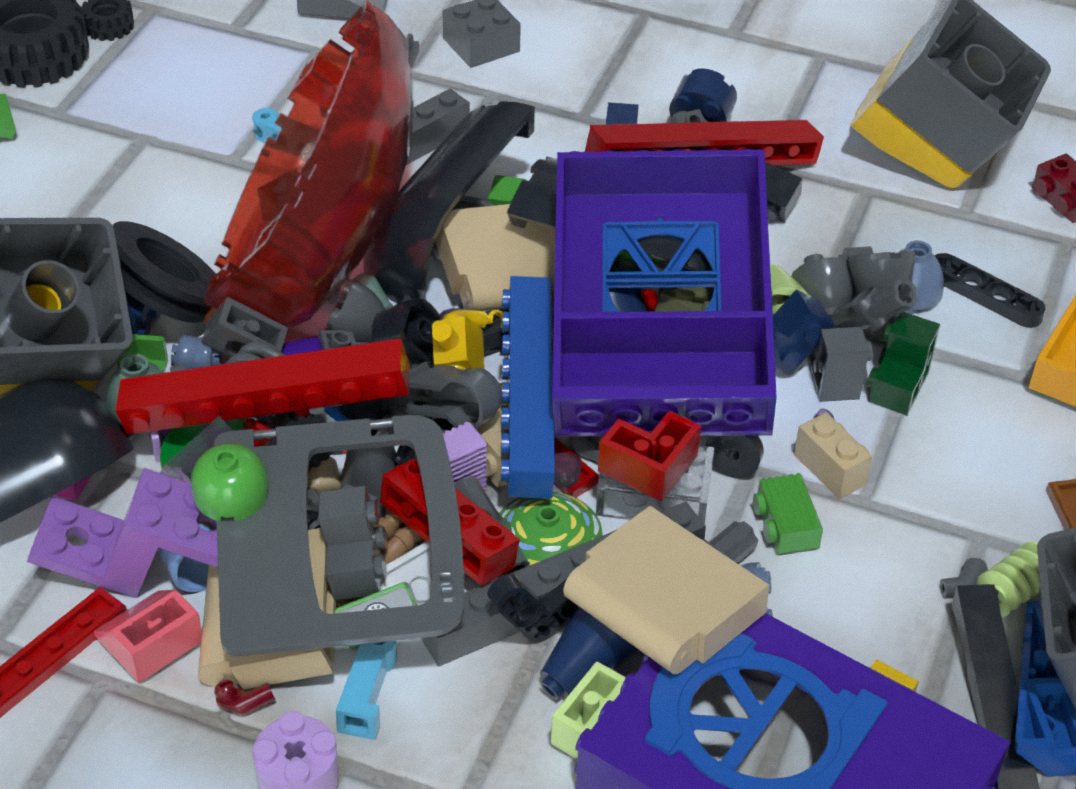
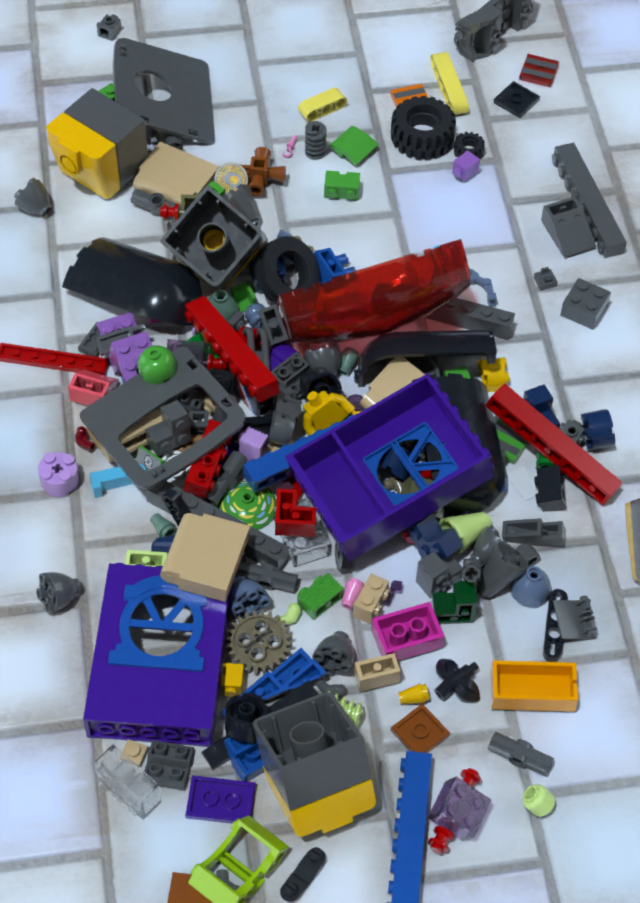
camera: 60 degrees right, 10 degrees up
(39, 162) = (342, 185): none -> bright green brick
(43, 590) = (88, 345): none -> dark grey plate
(96, 538) = (104, 341): none -> dark grey hinge
(141, 29) = (466, 166): none -> medium lavender brick
(195, 231) = (331, 265): none -> blue brick
(517, 159) = (493, 374): none -> yellow cylinder
(517, 659) = (163, 526): none -> sand green cone
(794, 559) = (292, 614): none -> yellowish green arm
(802, 463) = (351, 592): none -> bright pink cone
(824, 234) = (534, 532): none -> dark grey slope
(862, 623) = (247, 629): none -> dark tan gear
(915, 536) = (335, 654): none -> dark grey piece
(921, 623) = (287, 676): none -> blue wedge
(924, 439) = (408, 632): none -> dark pink brick
(976, 503) = (376, 672): none -> tan brick
(1001, 689) = (241, 713): none -> black brick
(1008, 267) = (575, 618): none -> dark grey hinge
(1026, 425) = (457, 680): none -> black plant
(1030, 482) = (414, 695): none -> yellow cone

